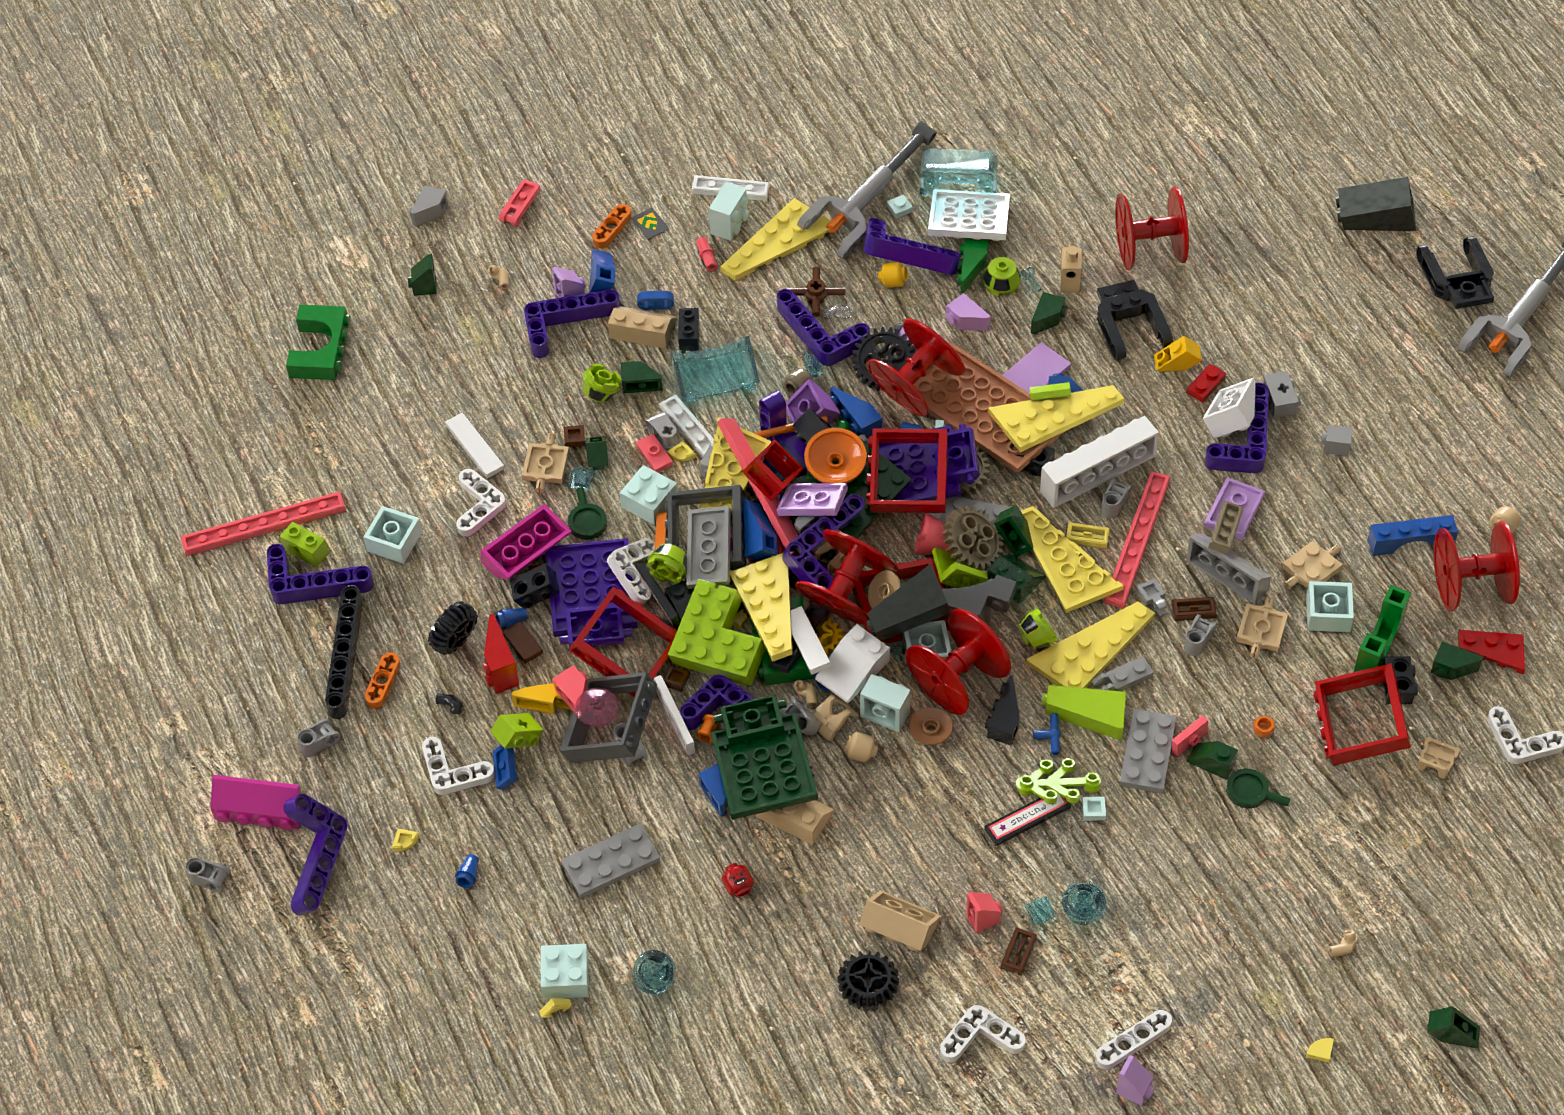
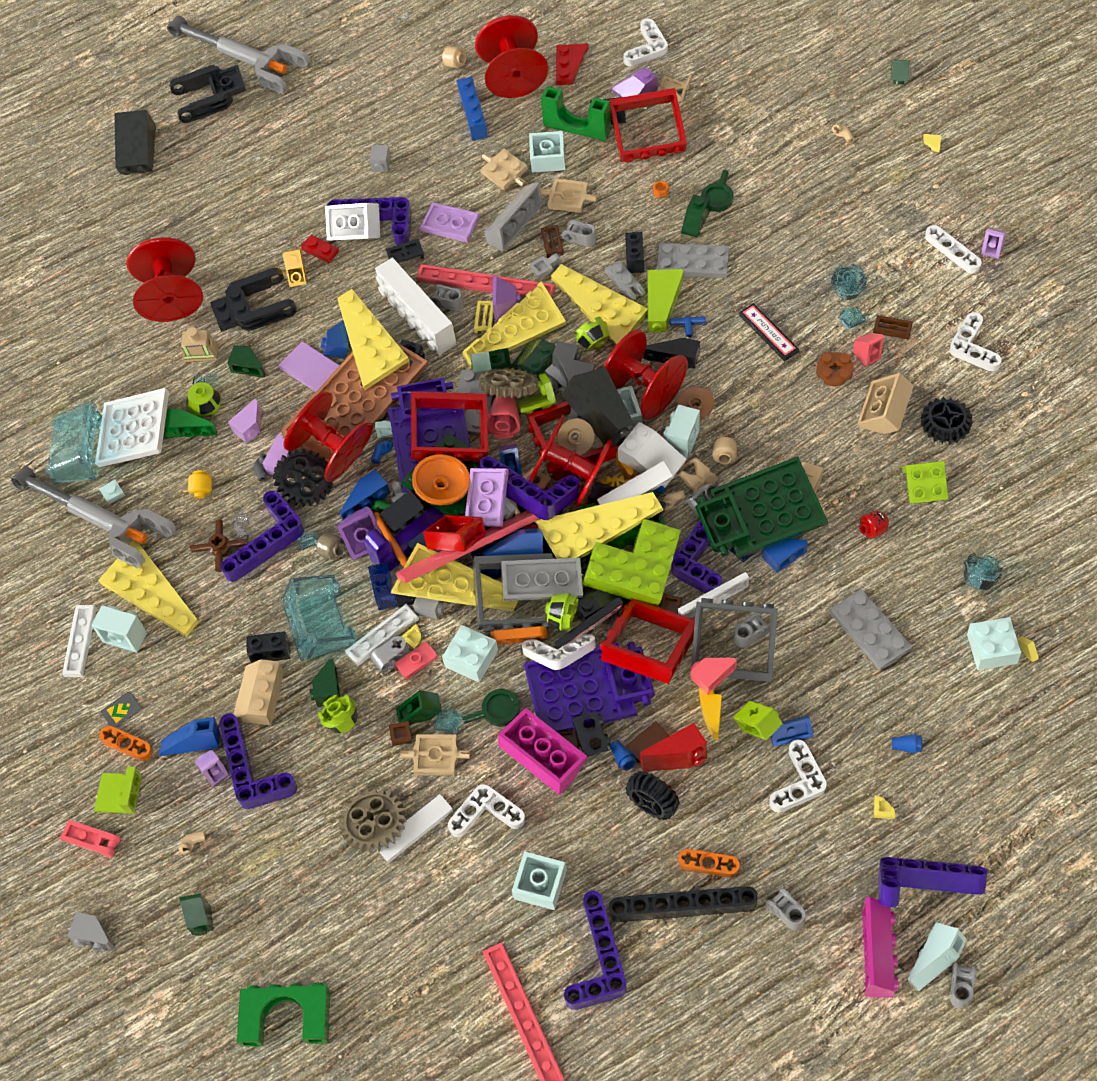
camera: 90 degrees left, 5 degrees up
(240, 856) = (938, 953): none -> light aqua slope
(304, 544) = (557, 971): lime brick -> none
(451, 700) = (723, 793): black arm -> none
(475, 416) = (365, 807): none -> dark tan gear
(560, 221) = (118, 792): none -> lime bracket
(598, 714) = (731, 649): clear pink dish -> none
(655, 300) = (227, 685): blue beam -> none
(706, 254) = (166, 648): coral axle -> none
(708, 726) = (723, 568): orange bush -> none
(746, 417) = (382, 586): none -> clear blue brick
(789, 942) = (926, 481): none -> lime bracket
(882, 539) = (510, 457): none -> blue slope
(906, 251) = (176, 477): dark purple beam -> none
(963, 866) = (835, 359): none -> dark orange plate
(1033, 784) = (735, 315): lime plant -> none
(1050, 391) = (345, 341): lime tile -> none
(1093, 808) = (755, 288): light aqua plate -> none
(1099, 543) = (504, 297): none -> medium lavender slope
(1160, 686) = (634, 252): none -> black brick
(1183, 458) = (405, 251): none -> black hinge
(1190, 736) = (678, 231): coral plate -> none
(1225, 527) = (482, 213): dark tan tile -> none
(1282, 396) = (333, 191): light grey brick -> none
(1444, 717) = (636, 83): none -> medium lavender slope
(1455, 662) = (587, 82): dark green slope -> none

